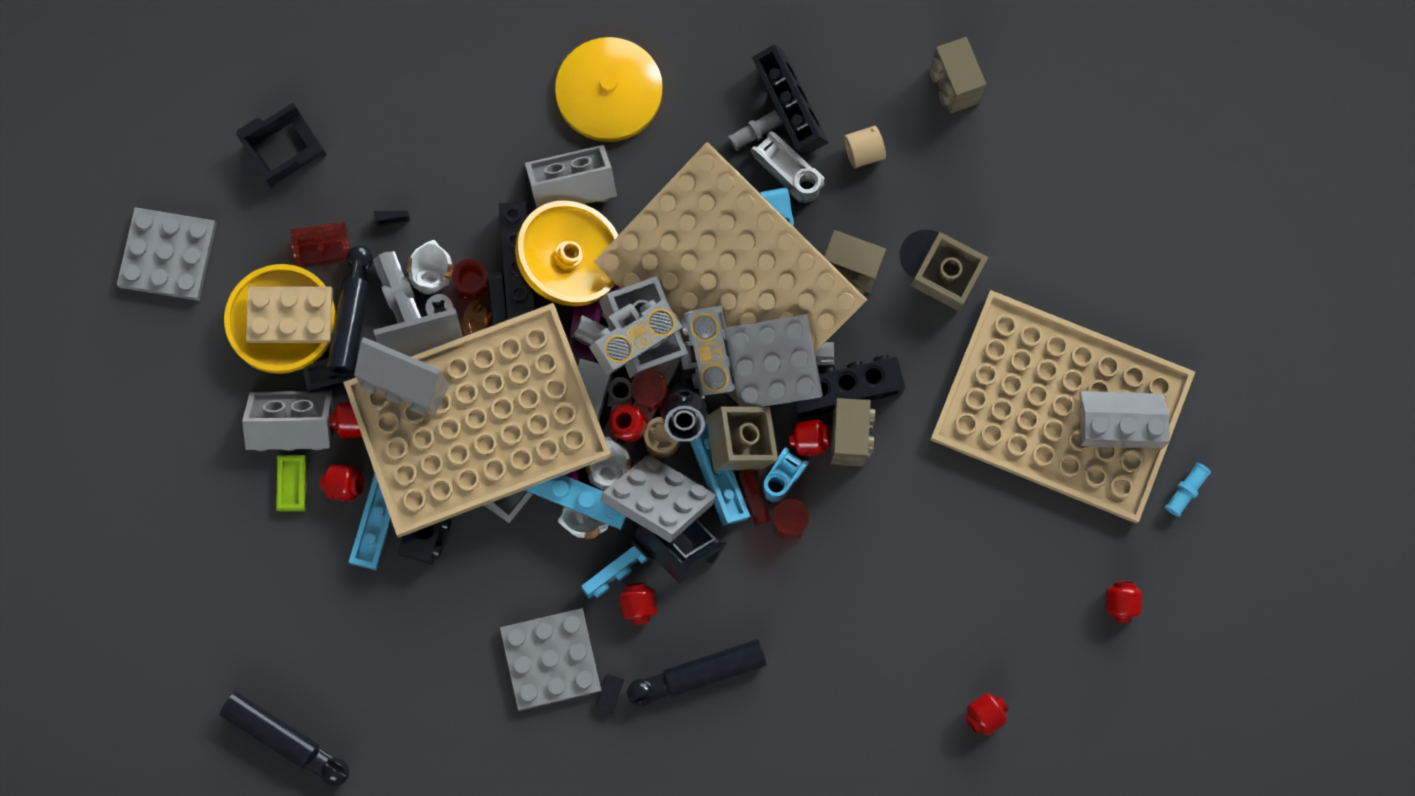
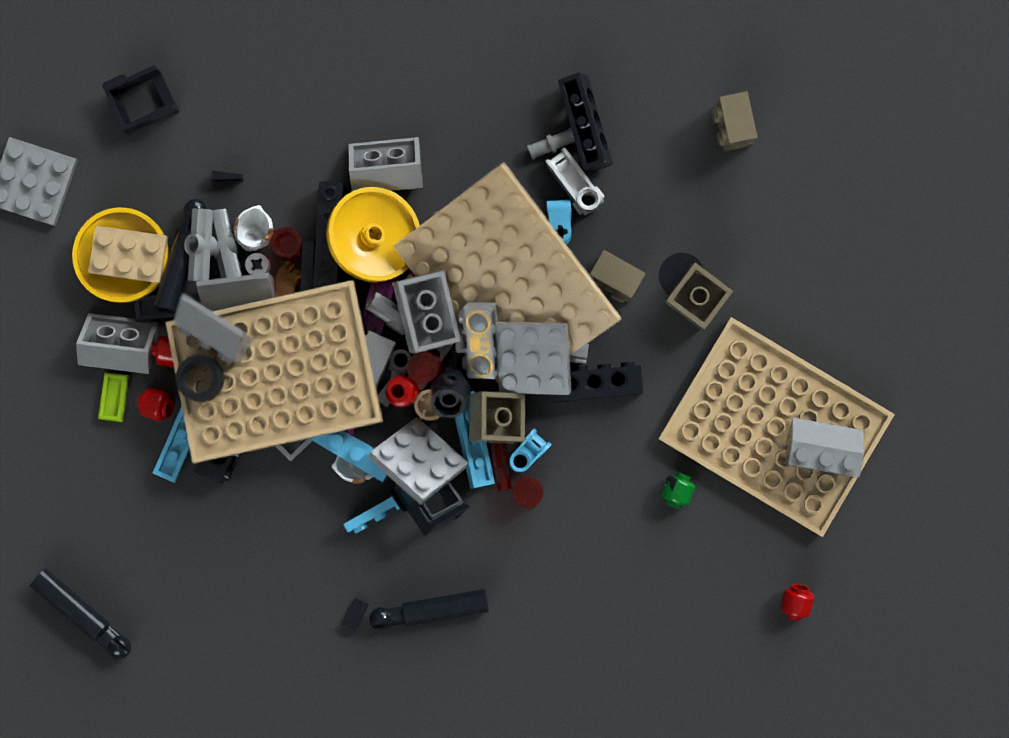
camera: 10 degrees right, 10 degrees up
(320, 243) = (163, 192): clear red hinge -> none
(371, 290) = (200, 245): none -> light grey piece
(378, 421) = (186, 365): none -> black tyre
(550, 659) = (310, 579): light grey plate -> none
(606, 472) = (382, 431): white hair -> none
(608, 89) = (430, 88): yellow dish -> none
(627, 343) = (427, 320): light grey piece -> none
(638, 603) = (389, 543): red head -> none
(810, 438) = (556, 424): red head -> none
(851, 431) = (591, 426): dark tan brick -> none
(864, 147) = (643, 173): tan piece -> none
(963, 494) = (678, 490): none -> green head
(986, 714) = (665, 680): red head -> none
(1187, 489) = (869, 514): medium azure pin -> none

